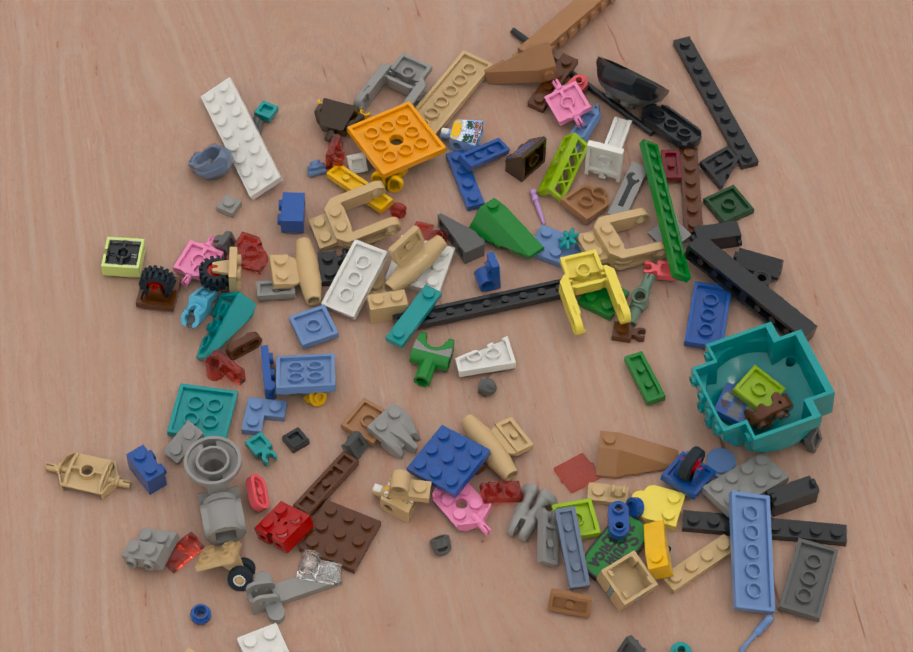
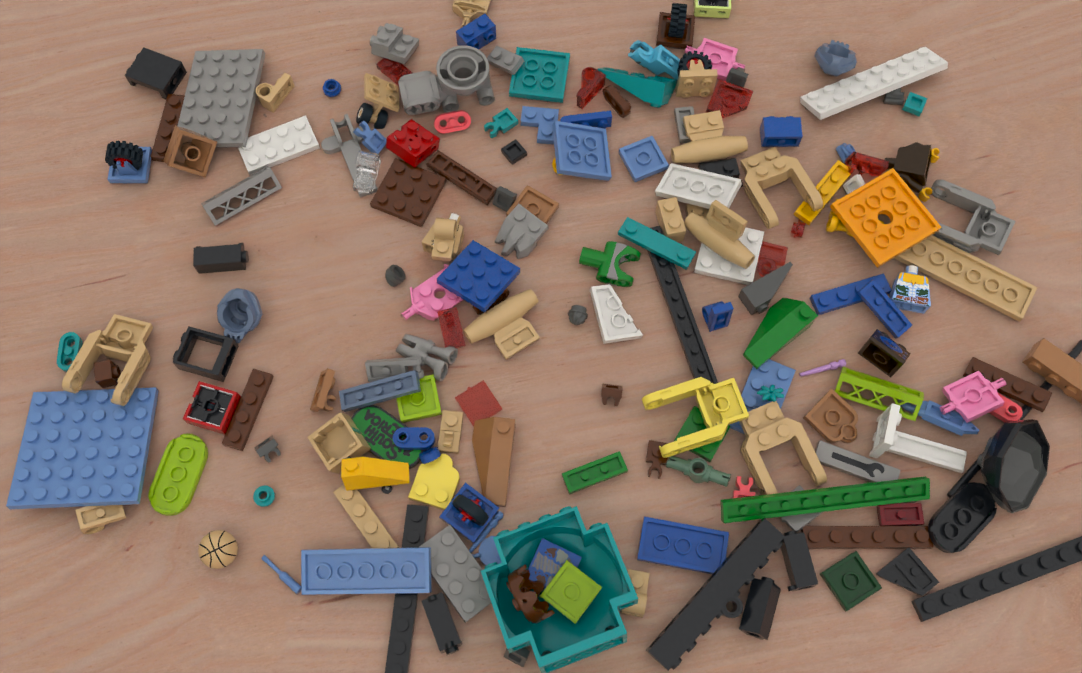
camera: 90 degrees right, 15 degrees up
(229, 206) = (787, 81): light grey plate -> none
(275, 567) = (372, 140): none -> medium blue plate
(530, 66) = (1020, 354): medium nougat wedge -> none
(566, 362) = (611, 391): none -> reddish brown tile
(808, 579) = (339, 634): dark grey plate -> none

